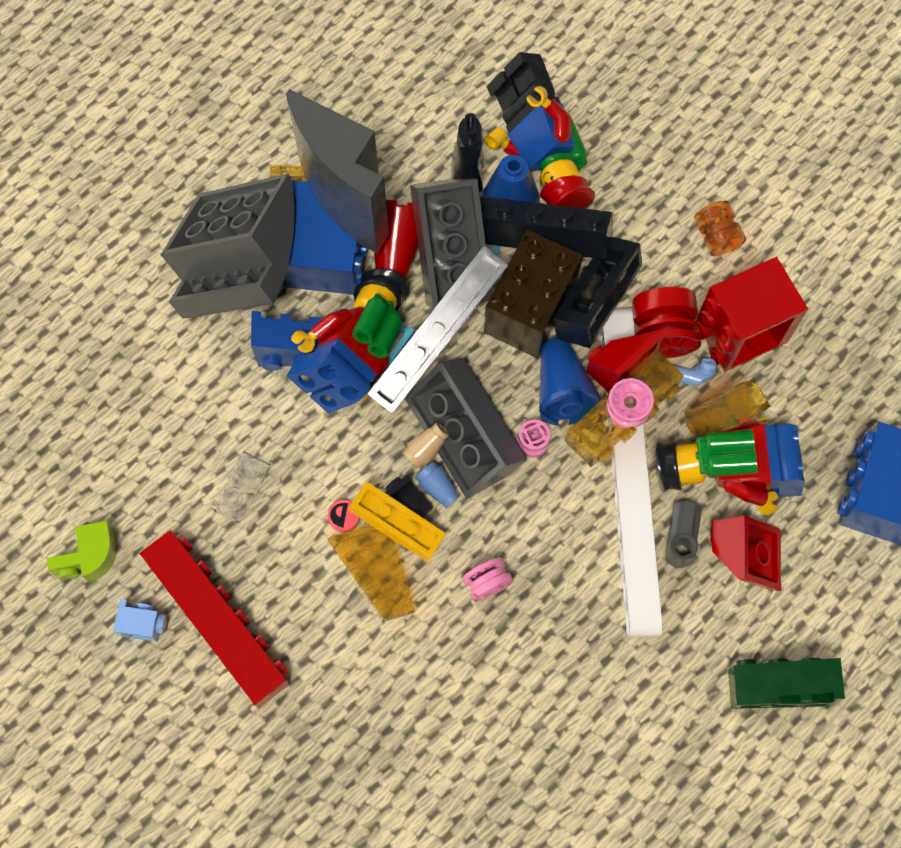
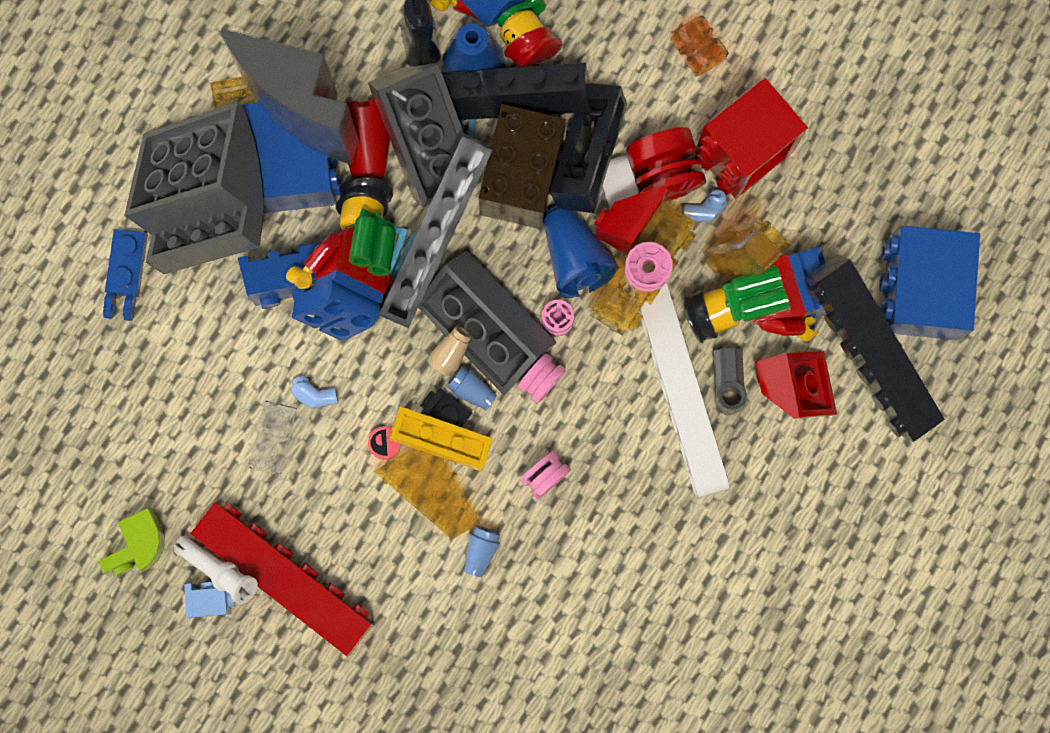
camera: 15 degrees left, 10 degrees up
(148, 309) = (124, 271): none -> blue hinge
(158, 598) = (224, 575): none -> white pin
(287, 458) = (311, 397): none -> light blue arm
(409, 637) = (480, 551): none -> medium blue cone
(505, 489) = (541, 378): none -> bright pink wheel
(786, 683) = (859, 508): dark green wedge -> none
(831, 531) = (874, 348): none -> black brick

